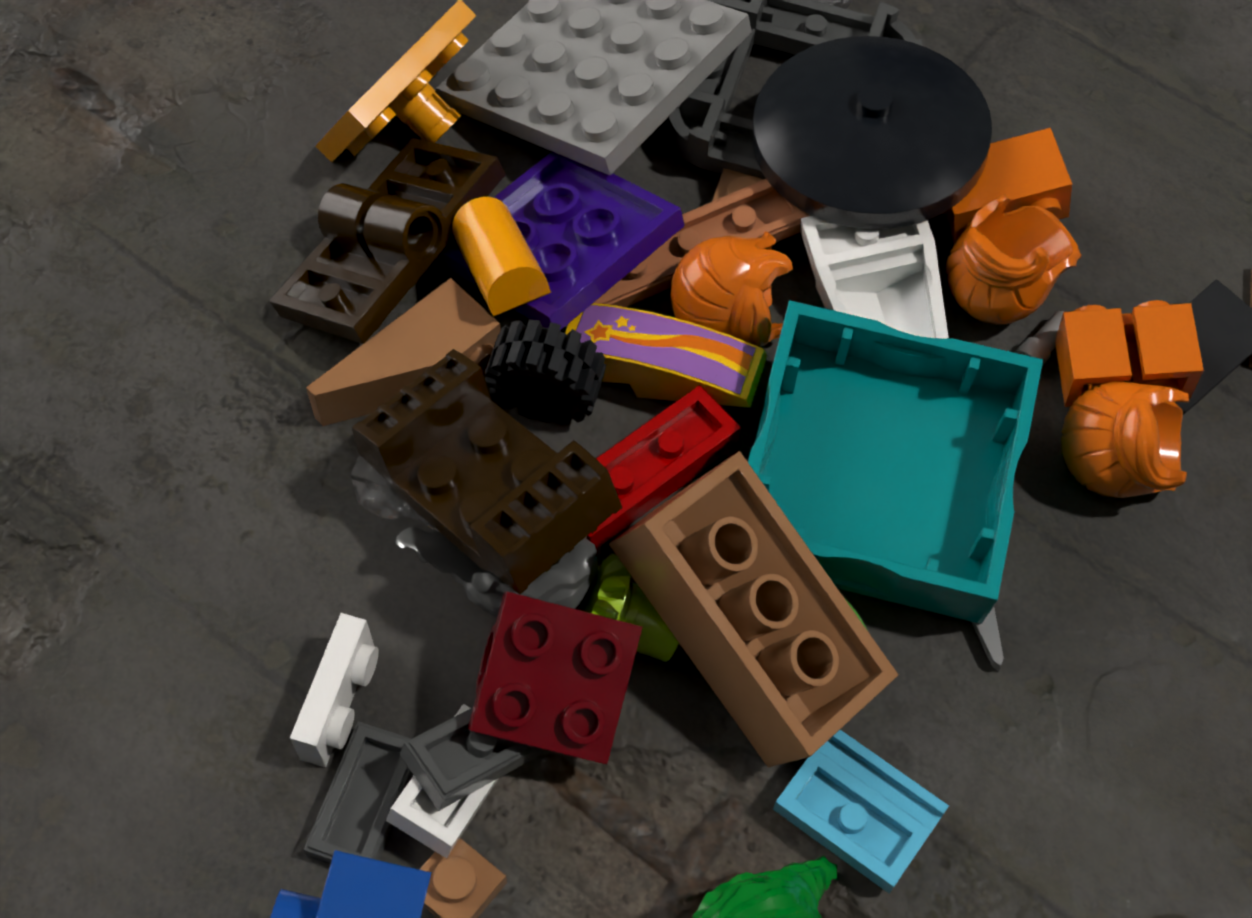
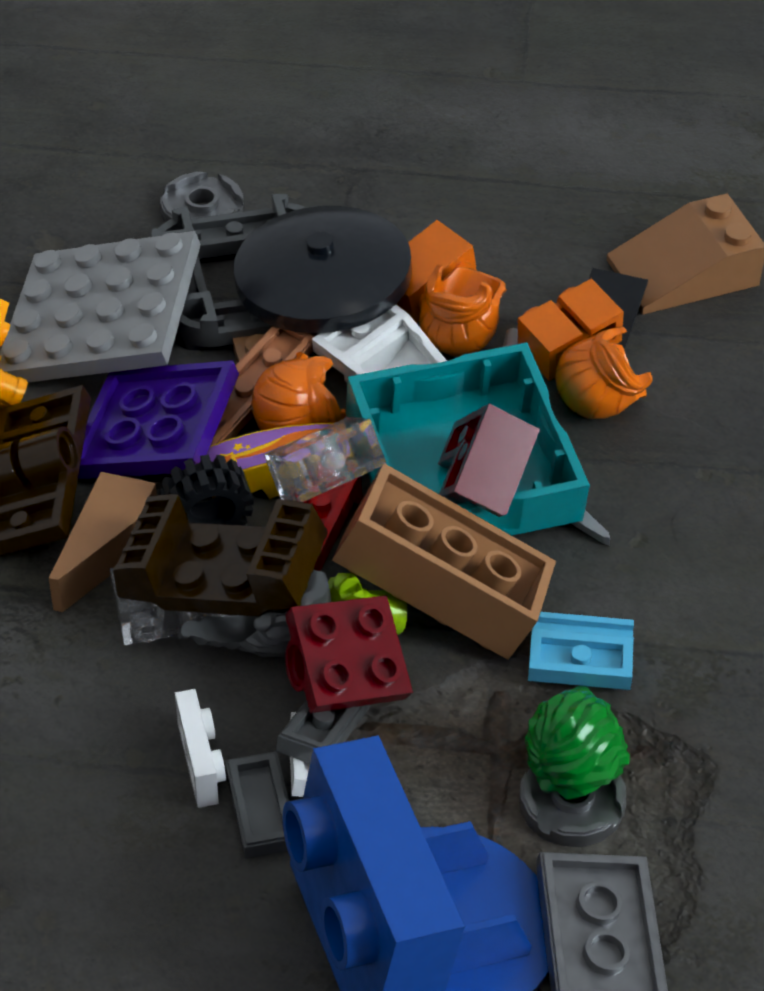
camera: 30 degrees left, 15 degrees down
(498, 255) = (127, 441): light orange brick -> none
(691, 400) = (325, 459): none -> clear brick
(882, 505) = (486, 458): none -> panel

